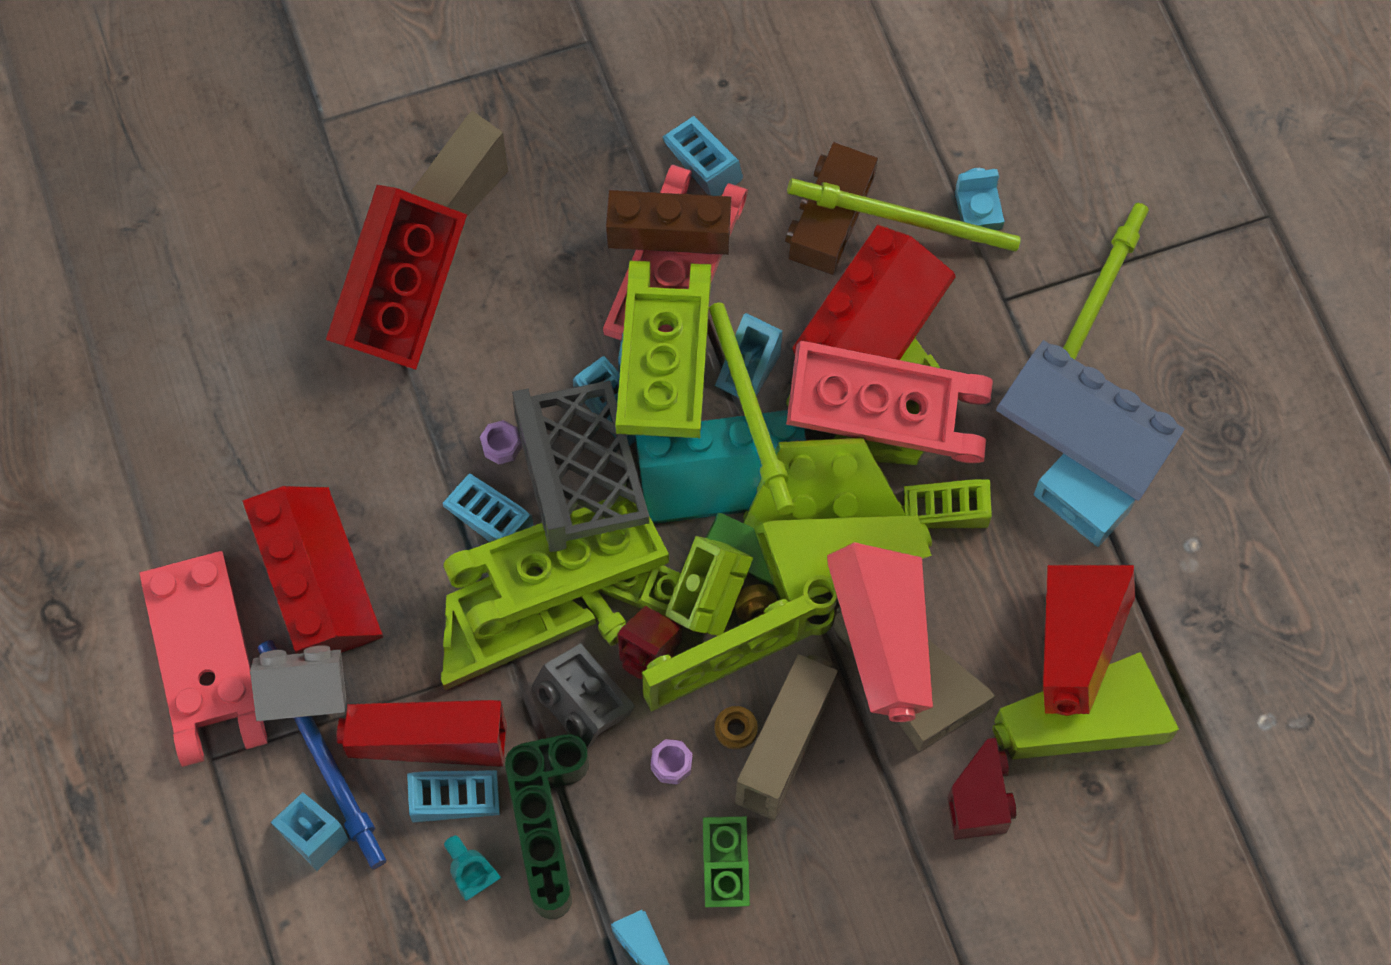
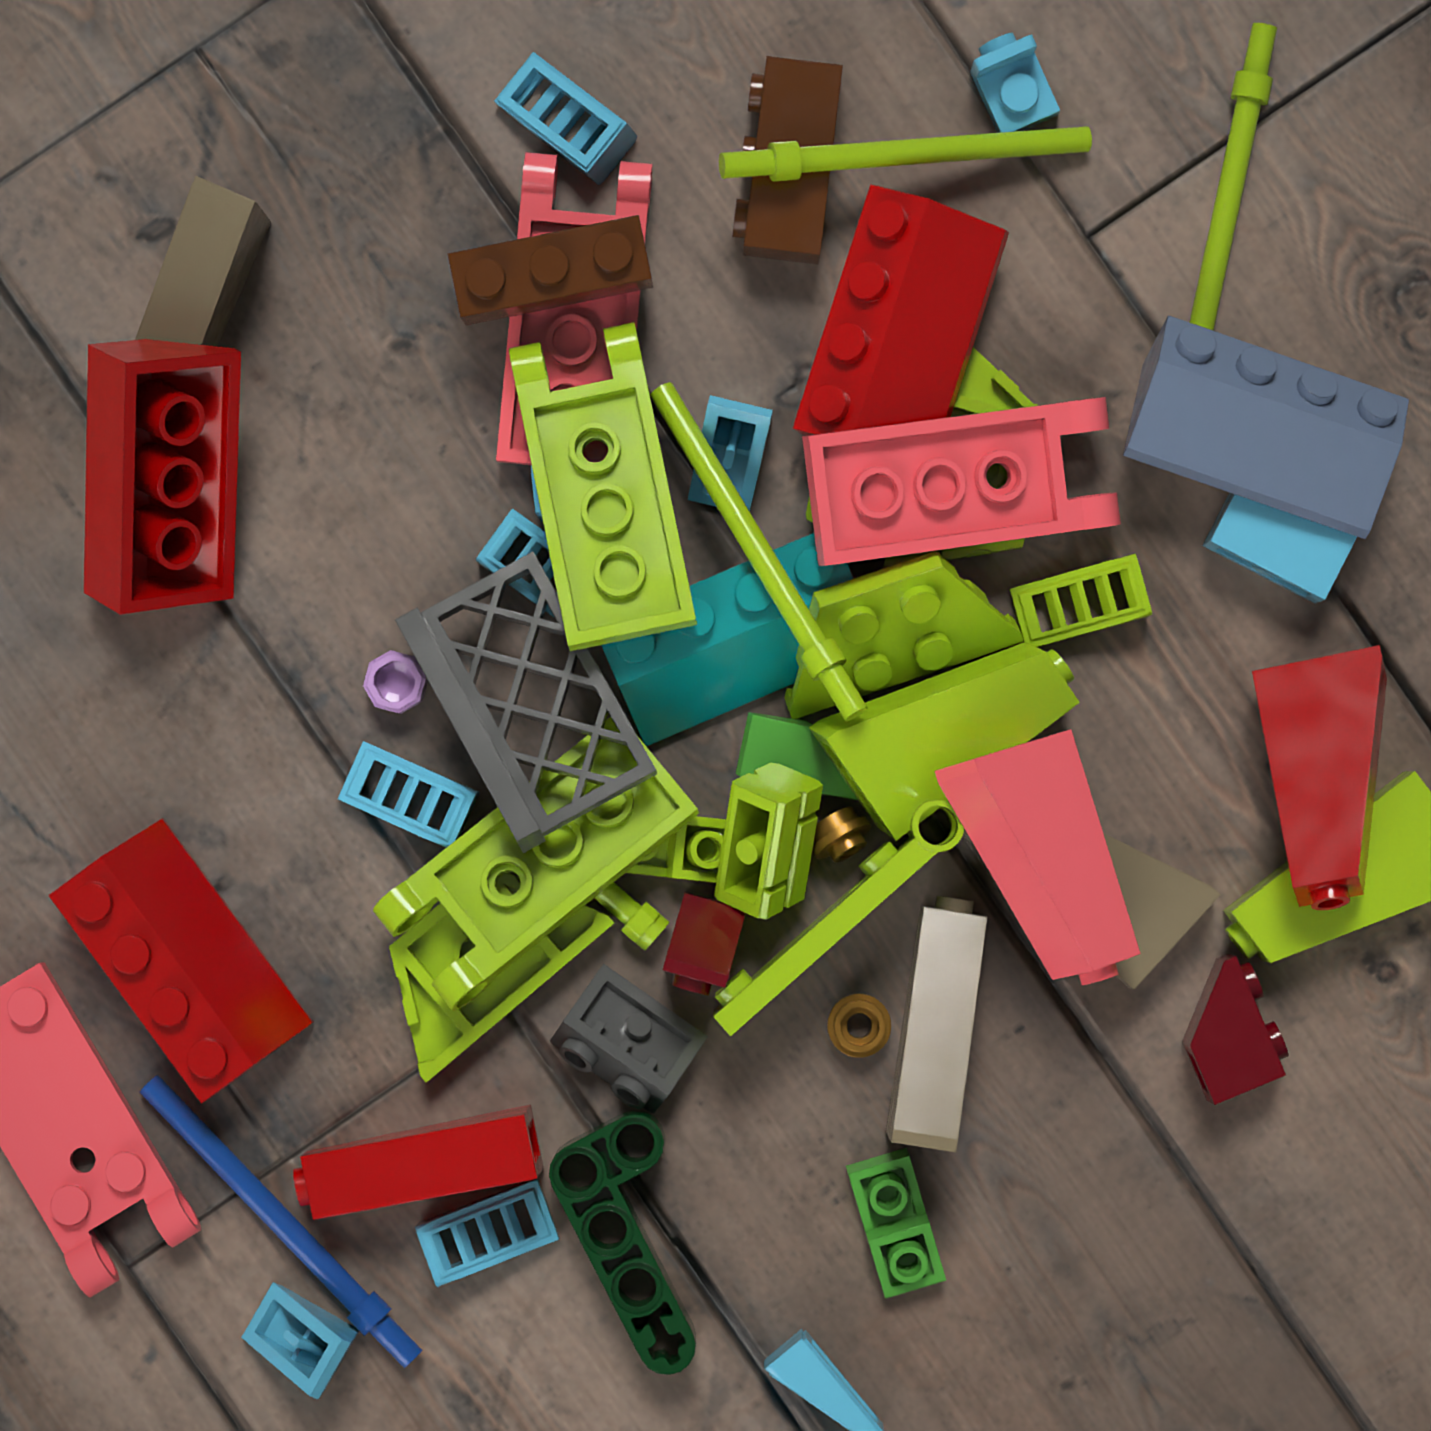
camera: 10 degrees left, 20 degrees up
(298, 683) = (222, 1151): light grey brick -> none
(469, 868) = (544, 1332): teal piece -> none
(671, 761) = (781, 1102): lavender tile -> none

